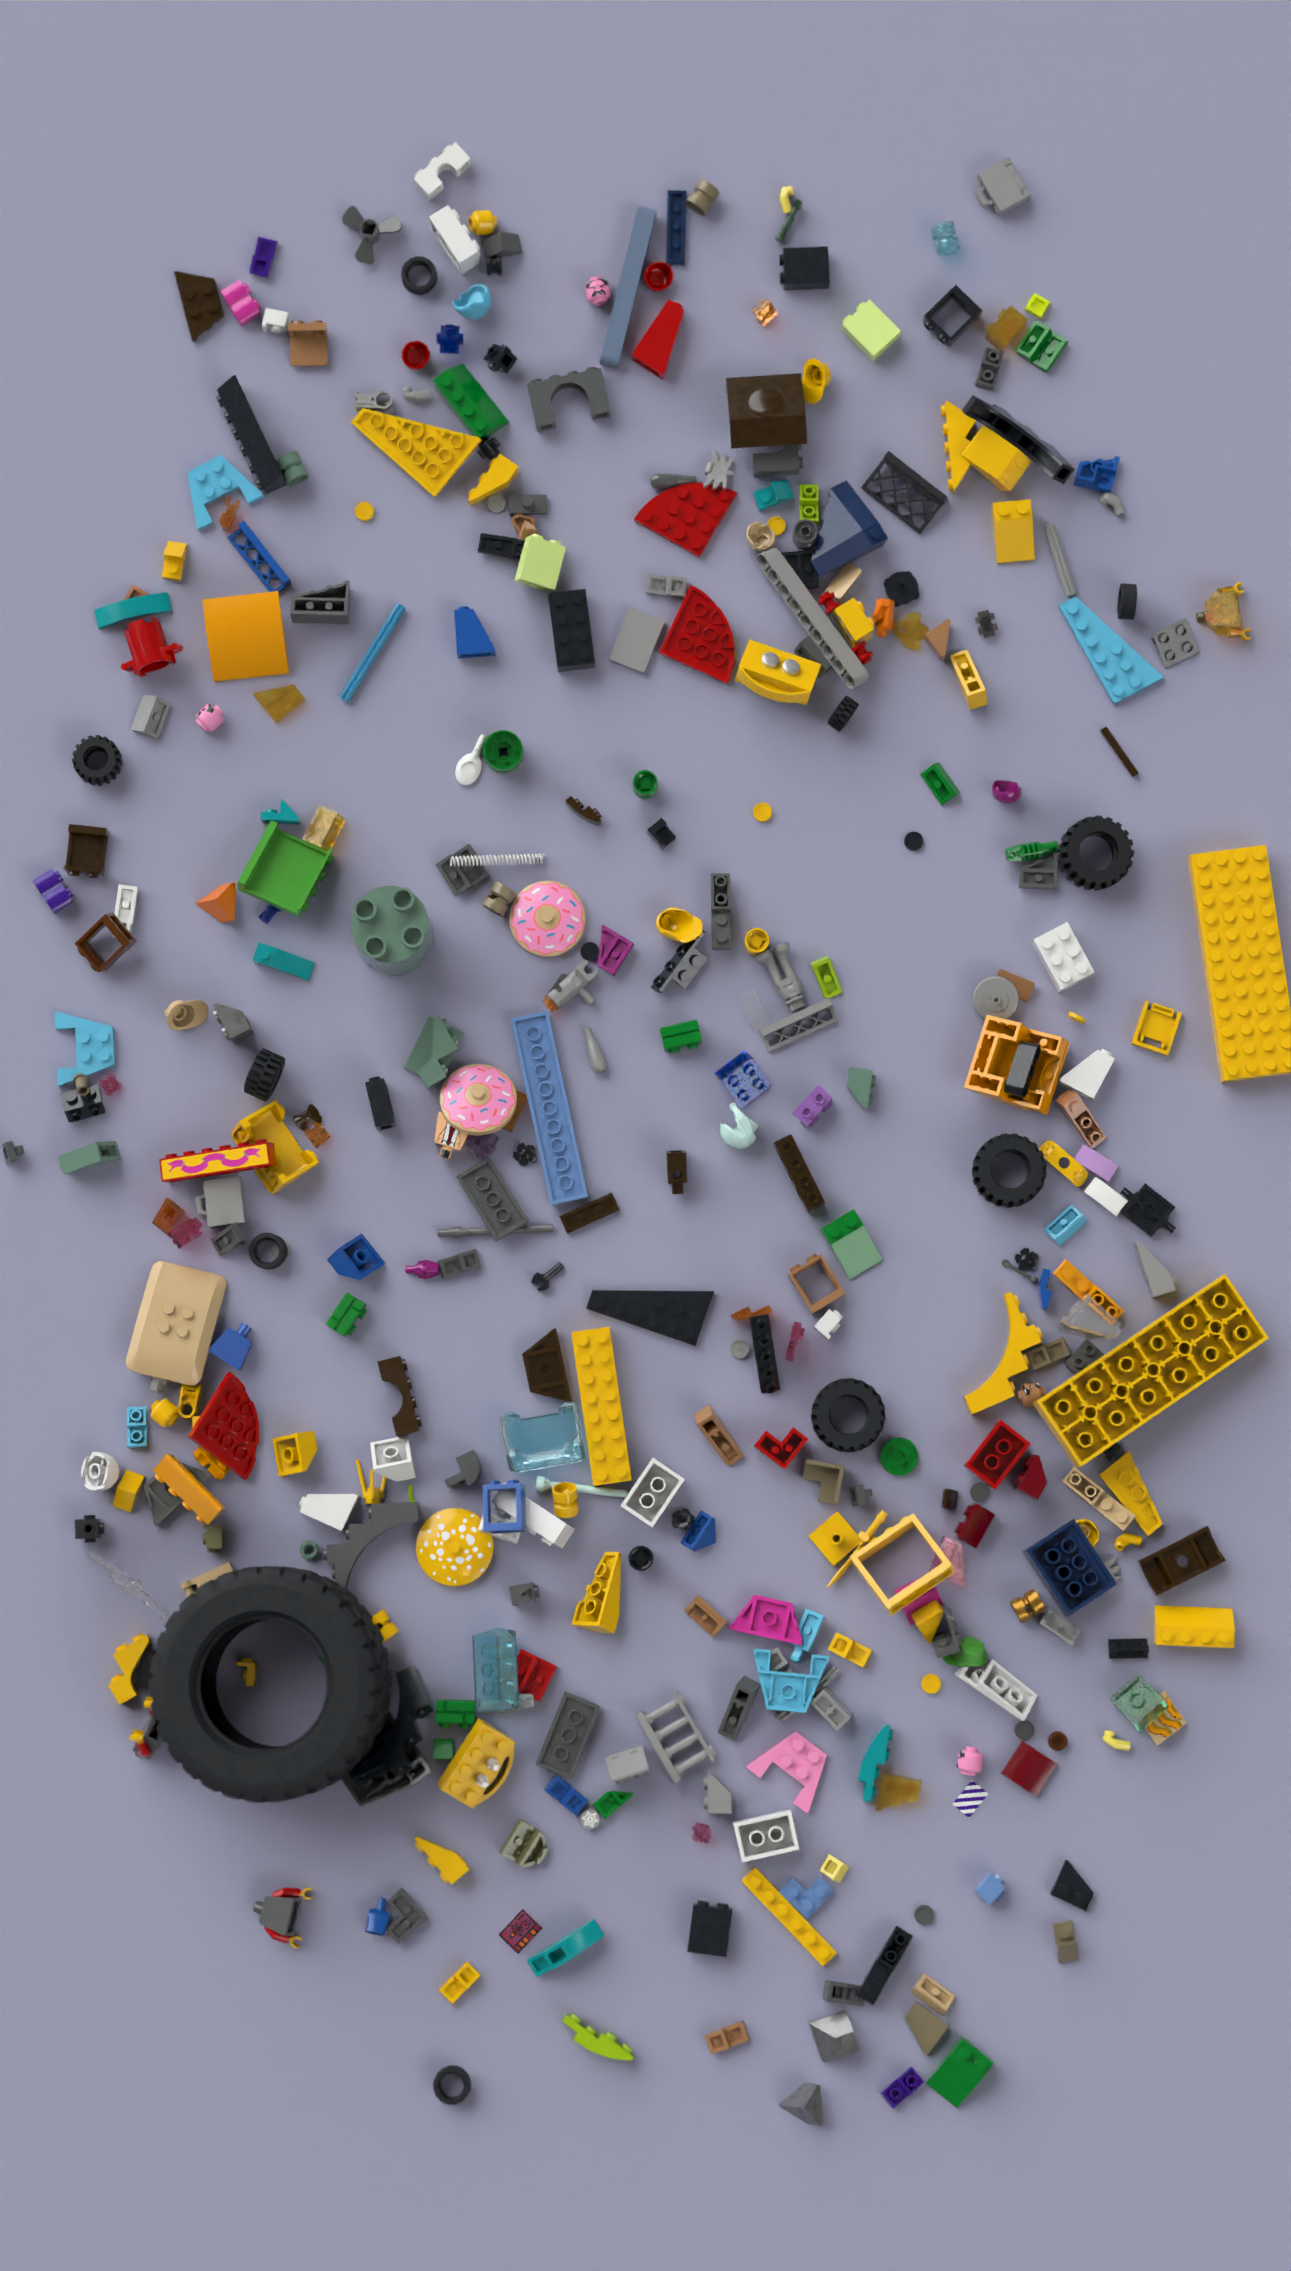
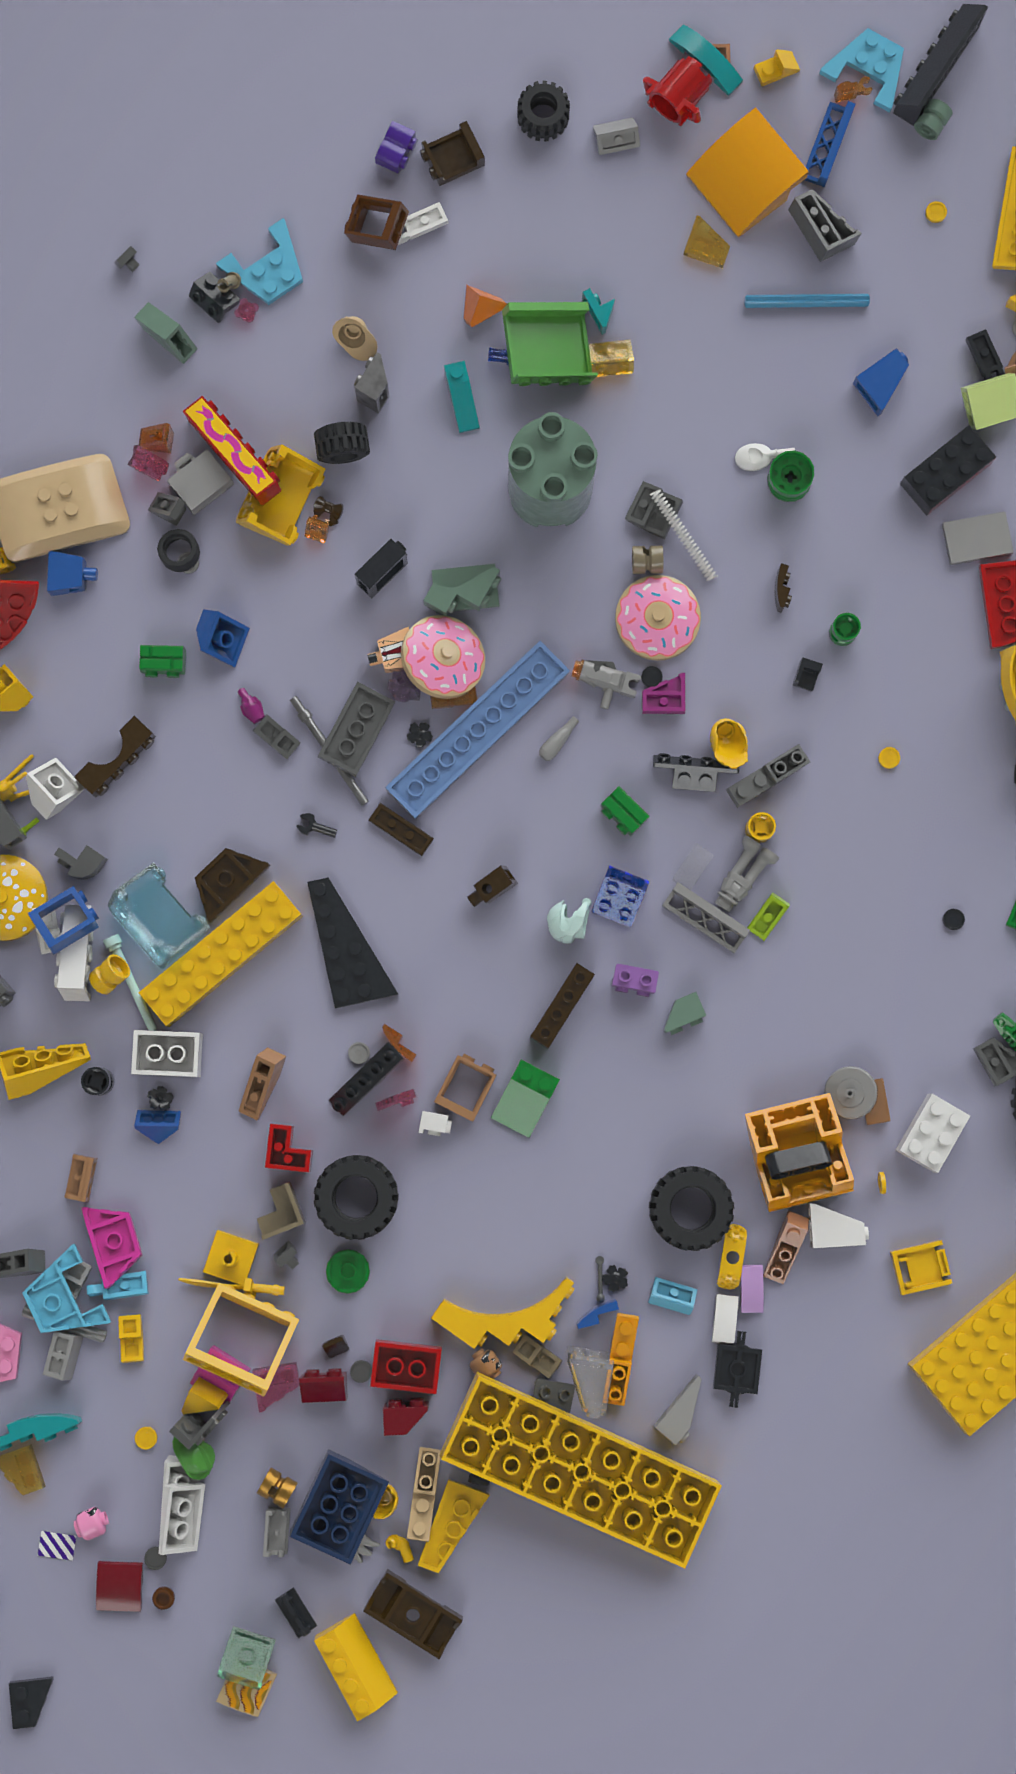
camera: 55 degrees right, 0 degrees up
(209, 717) = (649, 188): bright pink head -> none
(1115, 1743) = (194, 1656): light yellow arm -> none

